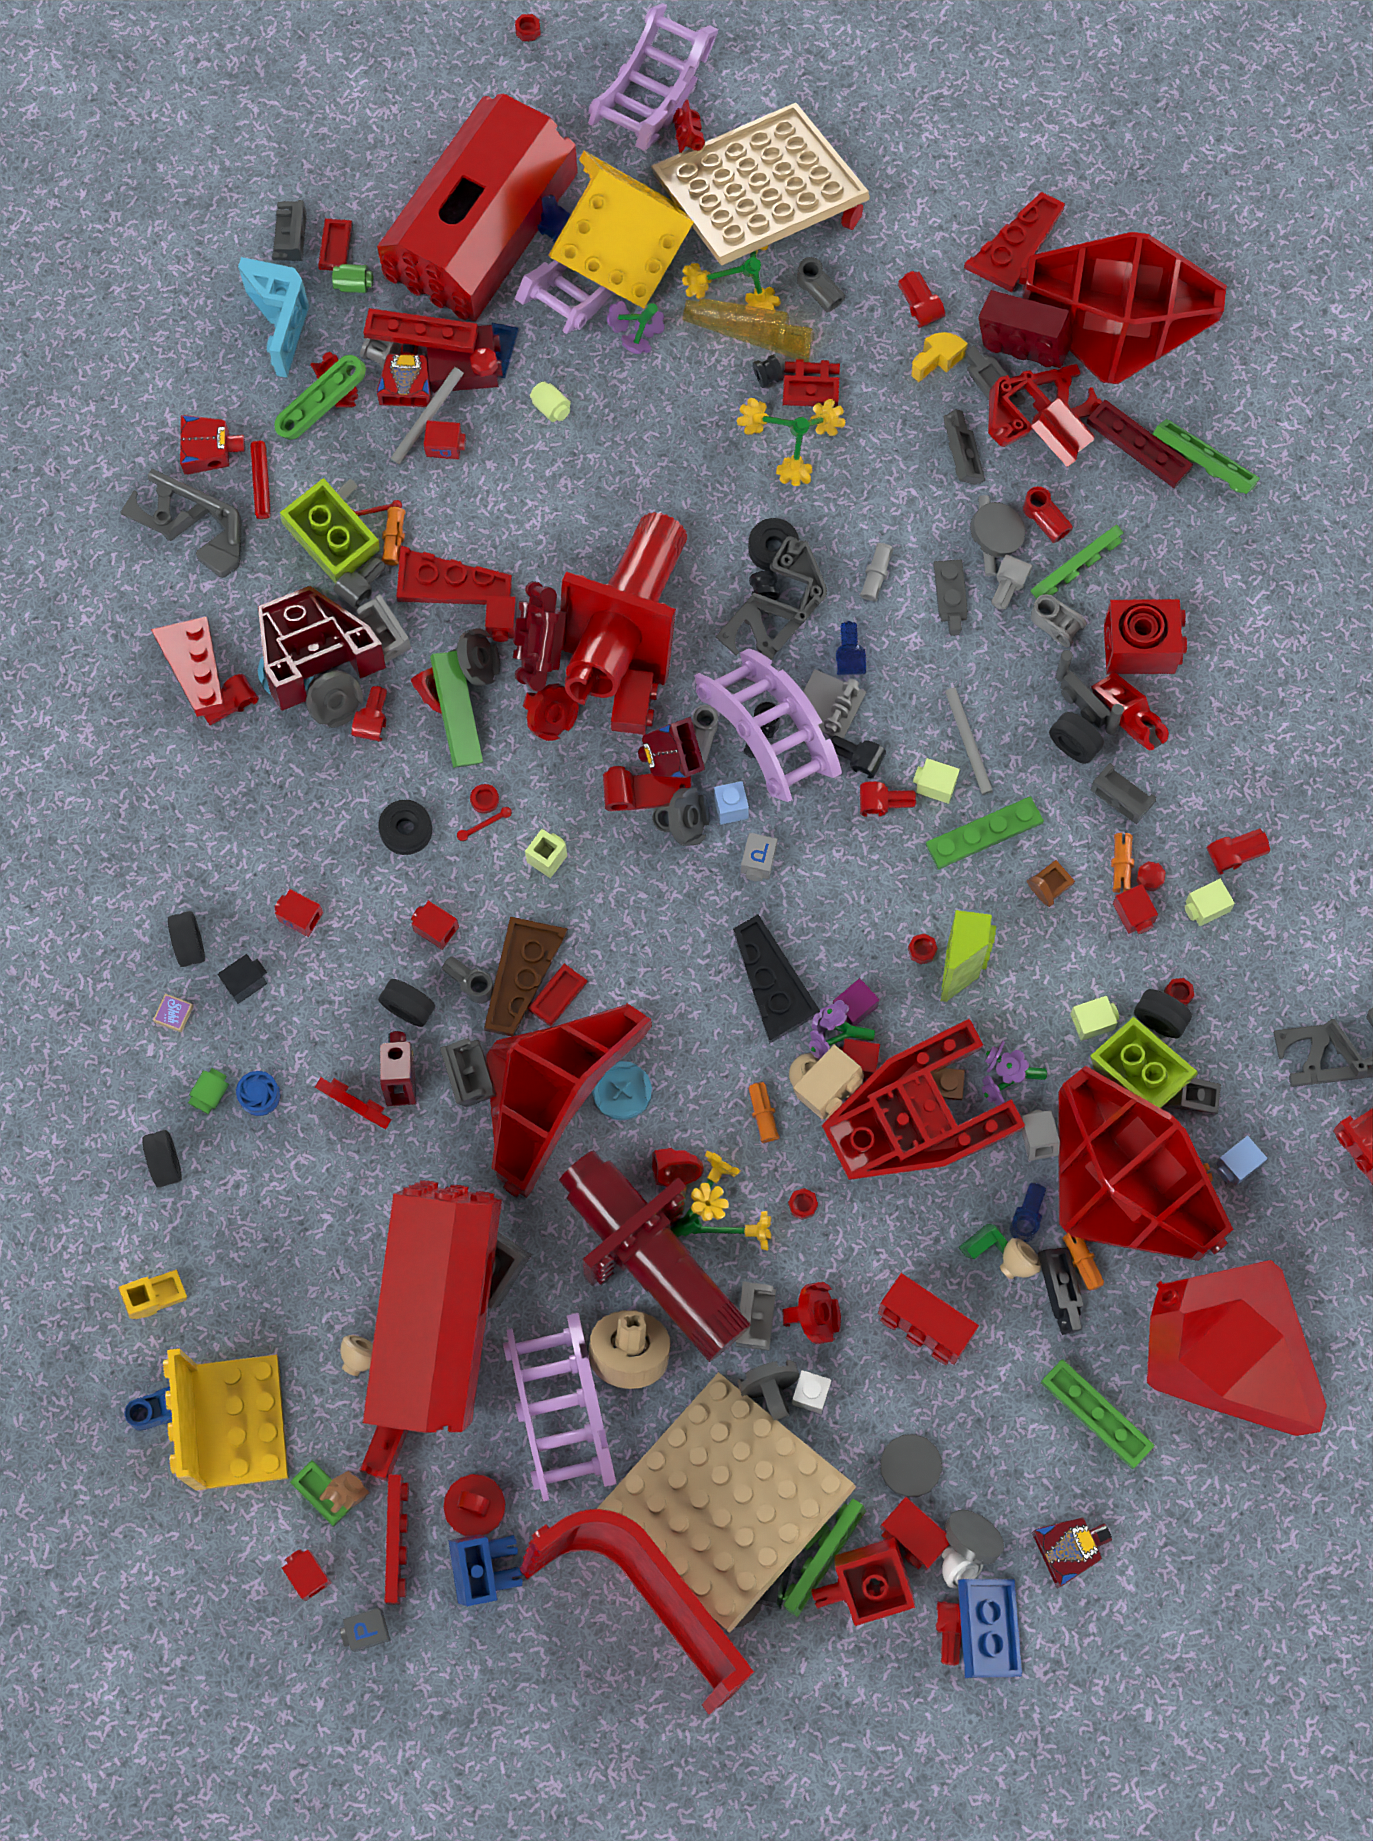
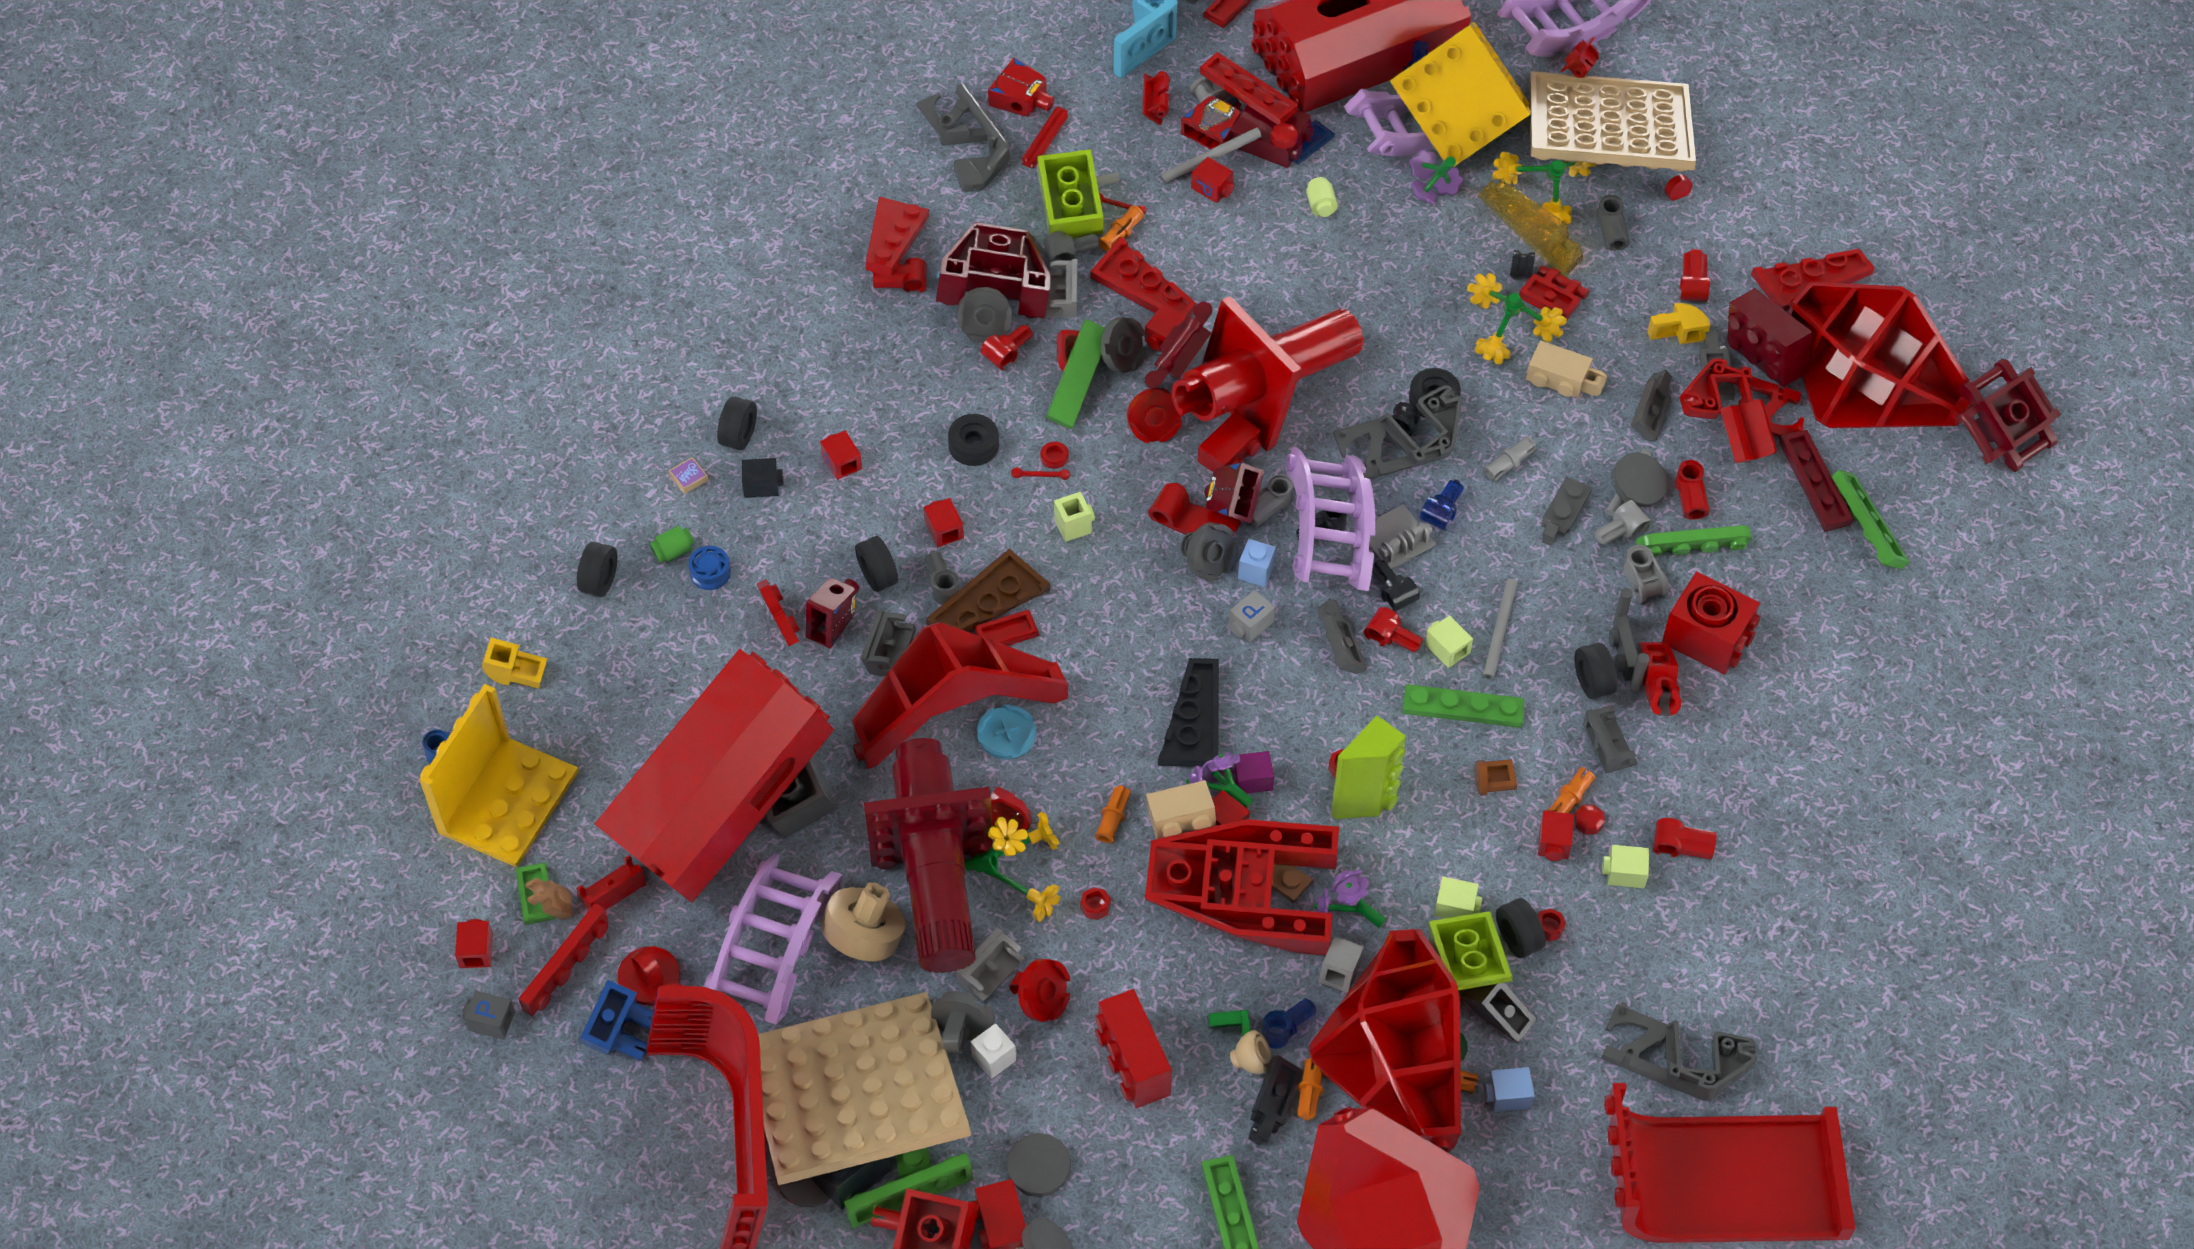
camera: 30 degrees right, 15 degrees down
(320, 397) = (1133, 98): bright green plate -> none
(352, 278) = (1224, 33): bright green brick -> none
(845, 830) = (1341, 637): none -> dark grey hinge
(870, 459) = (1564, 371): none -> tan brick
(1265, 291) = (2008, 415): none -> dark red brick

